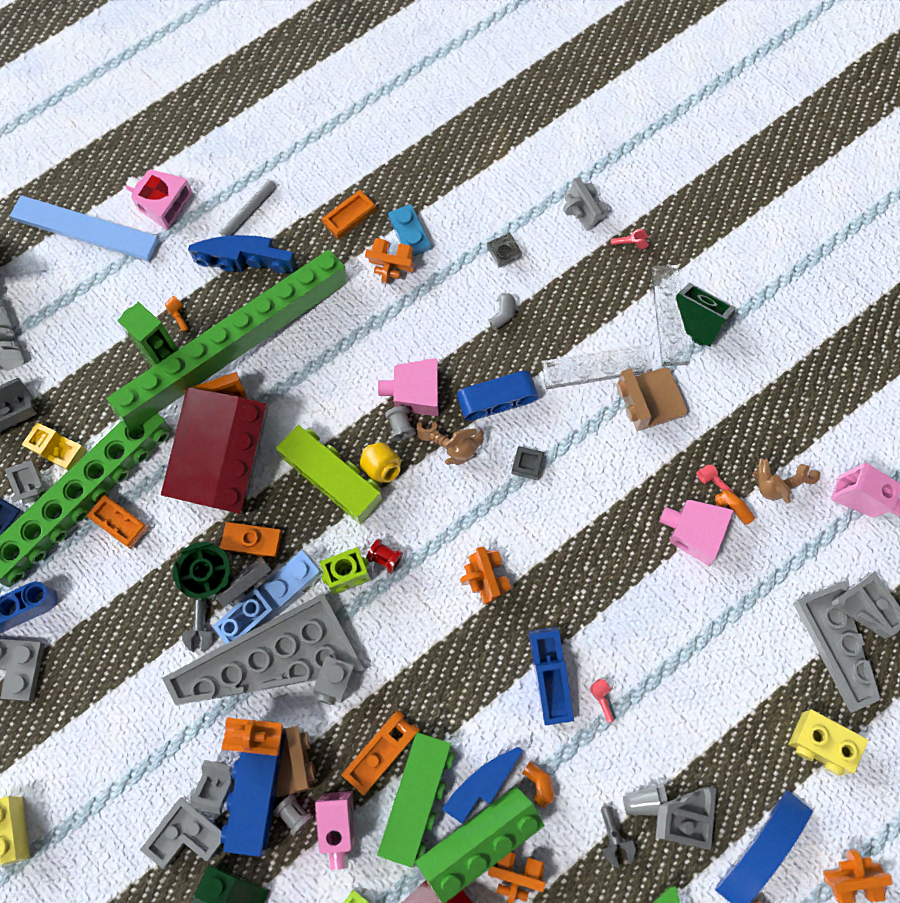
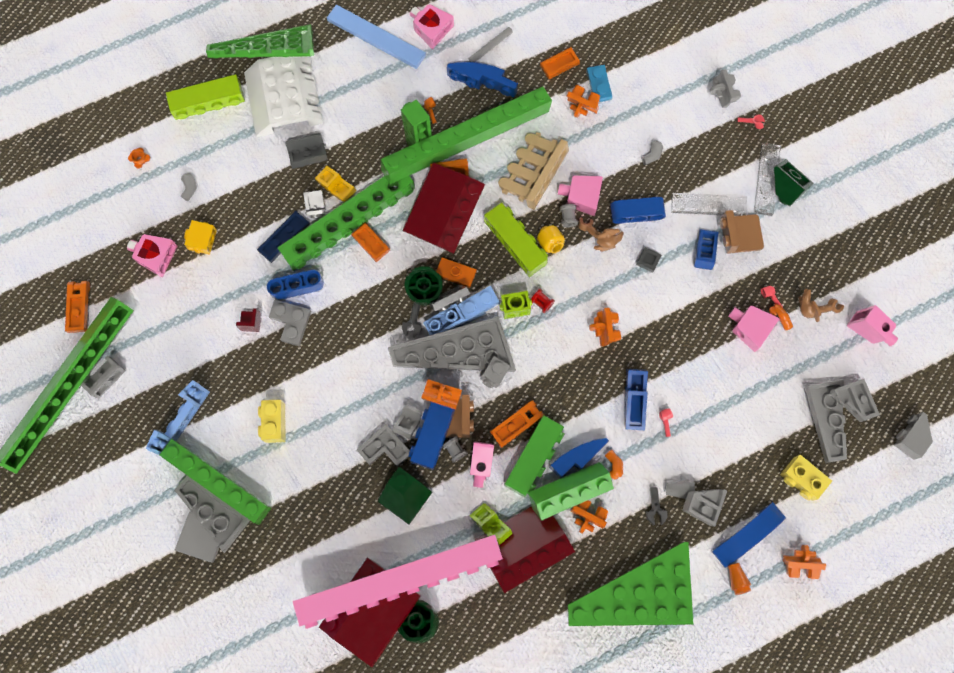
camera: 10 degrees right, 5 degrees up
(354, 370) = (541, 181): none -> tan fence
(504, 250) = (662, 110): clear smoke plate -> none
(606, 447) = (702, 260): none -> blue slope

